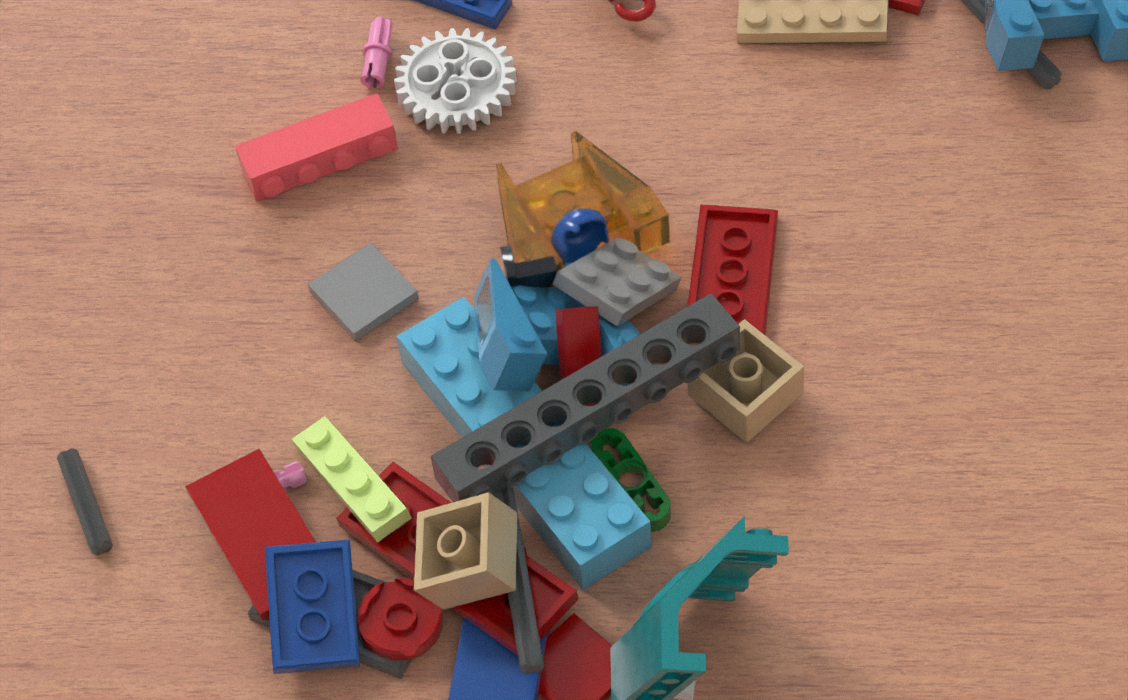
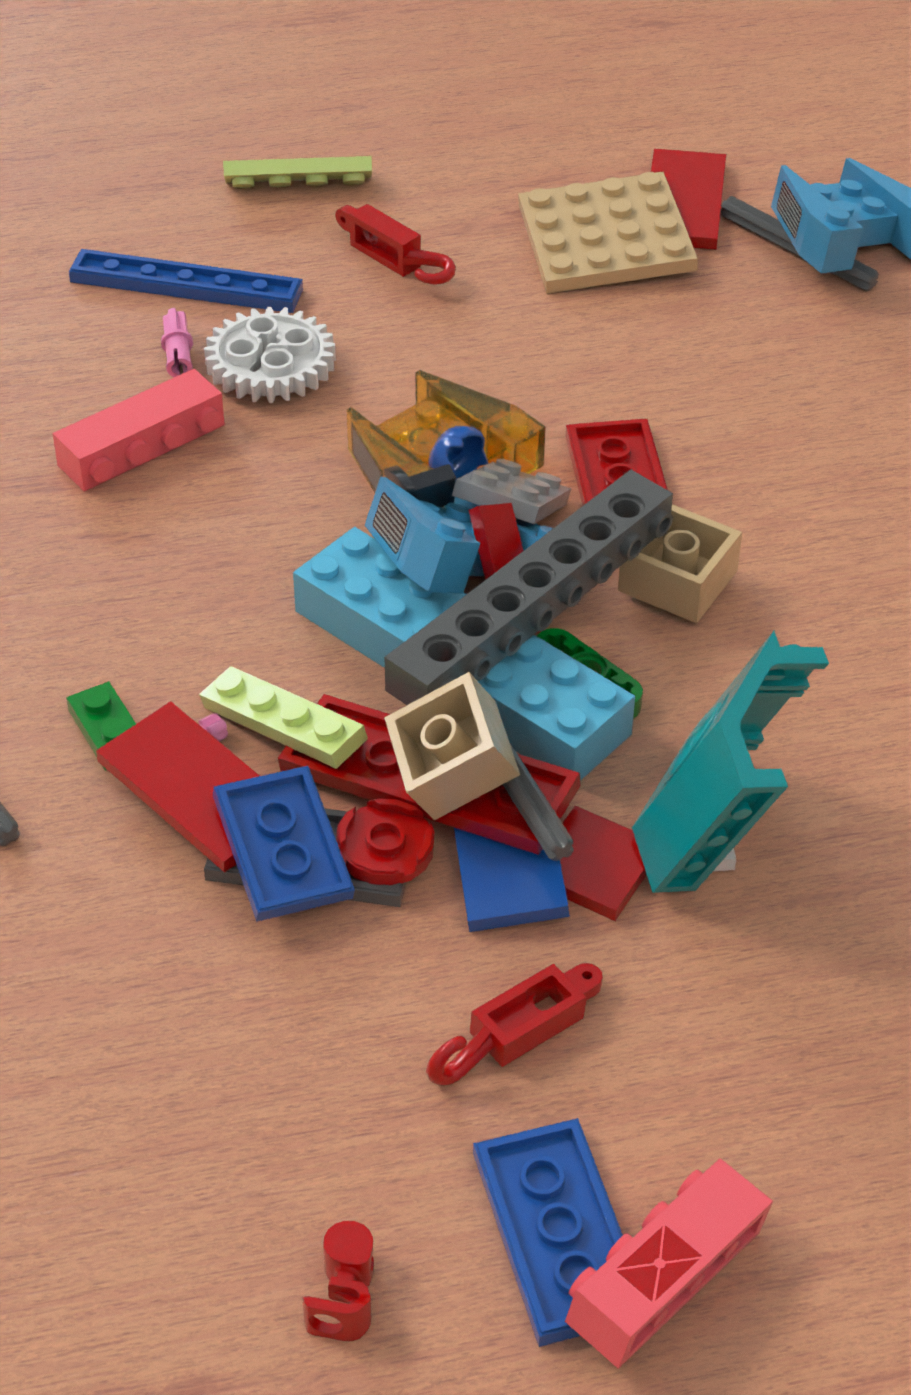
camera: 20 degrees left, 10 degrees down
(206, 444) = (99, 714): none -> green plate
(363, 291) = (232, 551): light grey tile -> none

